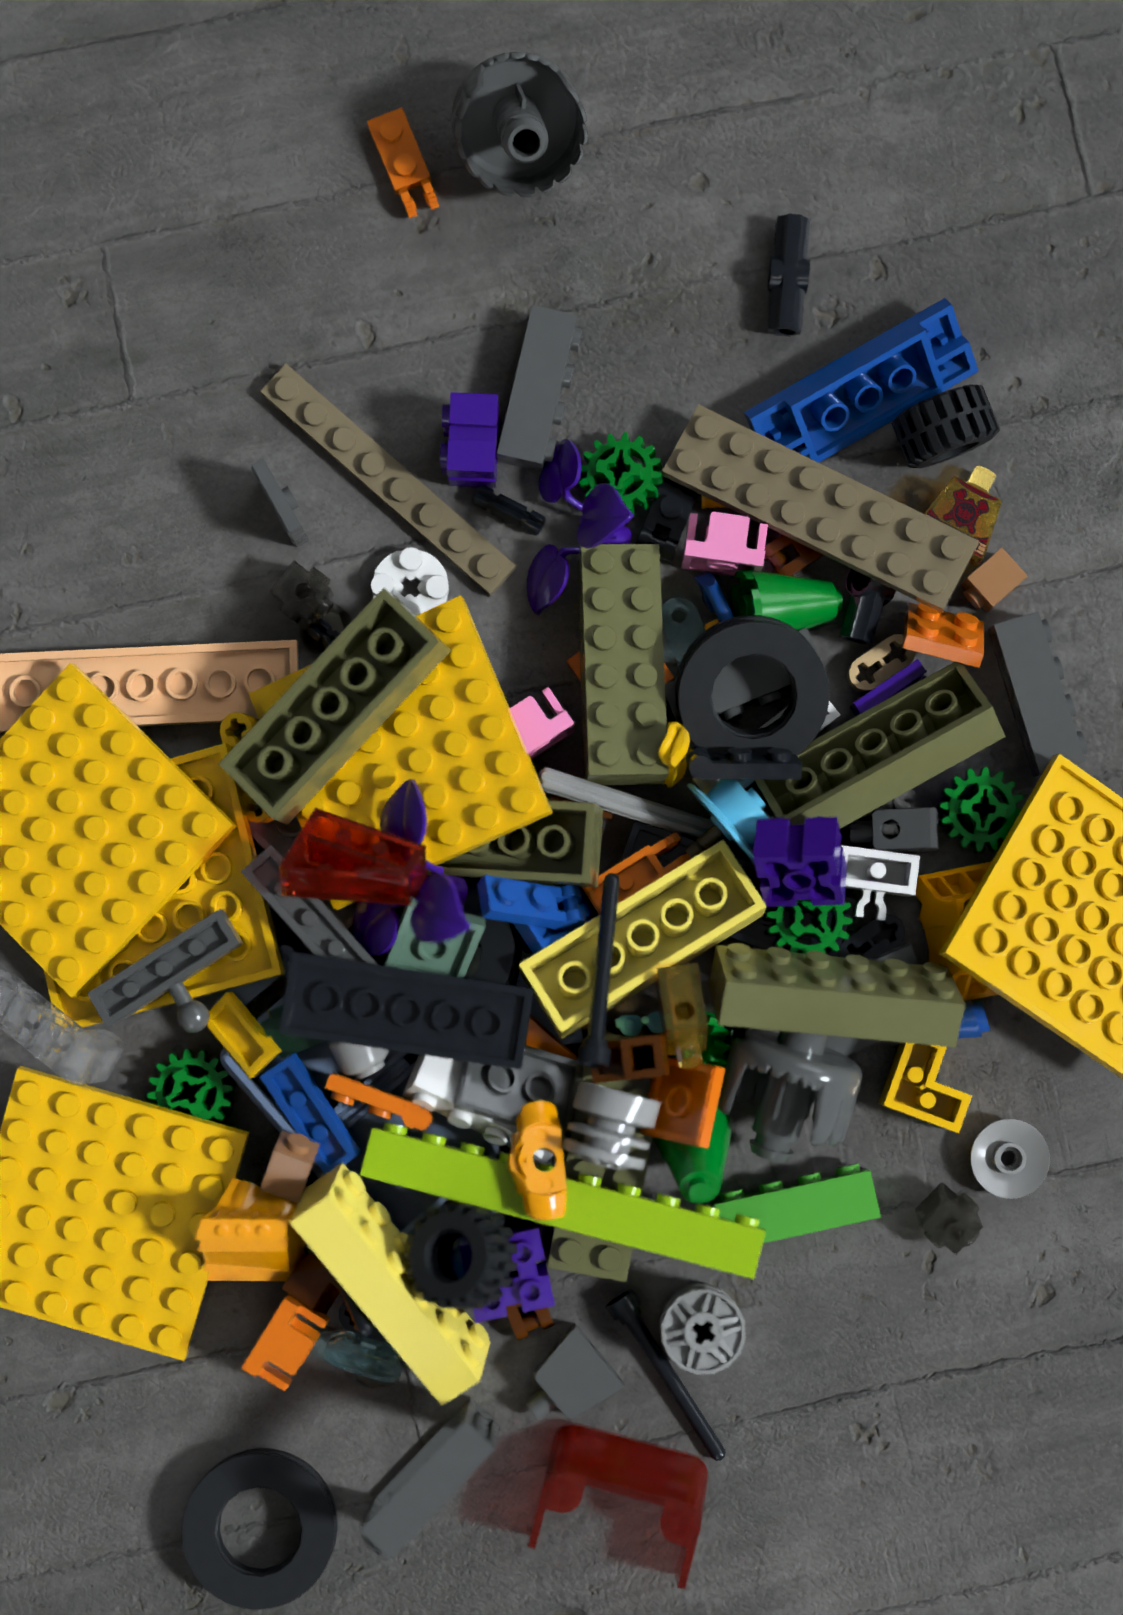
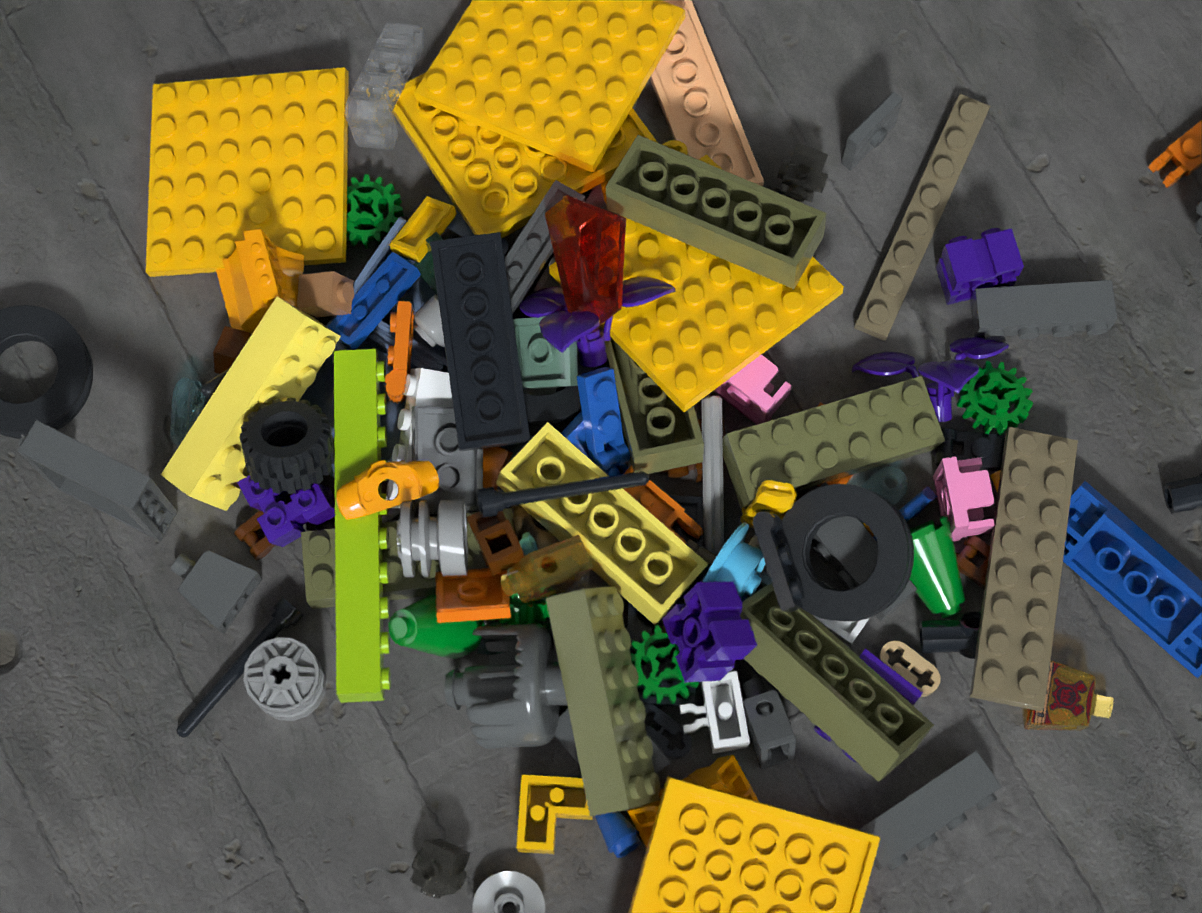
camera: 75 degrees right, 10 degrees down
(166, 971) = (455, 153): dark grey plate -> none
(285, 1342) = (182, 336): orange panel -> none
(412, 565) = (856, 252): white plate -> none
(508, 510) = (932, 319): black axle -> none
(627, 1468) = (150, 657): clear red windscreen -> none
(806, 1206) = (415, 740): bright green brick -> none
(944, 634) = (952, 709): orange plate -> none
(945, 426) = (1136, 654): black tyre -> none
(963, 808) = (805, 775): green gear -> none
(993, 581) = (1015, 742): medium nougat brick -> none

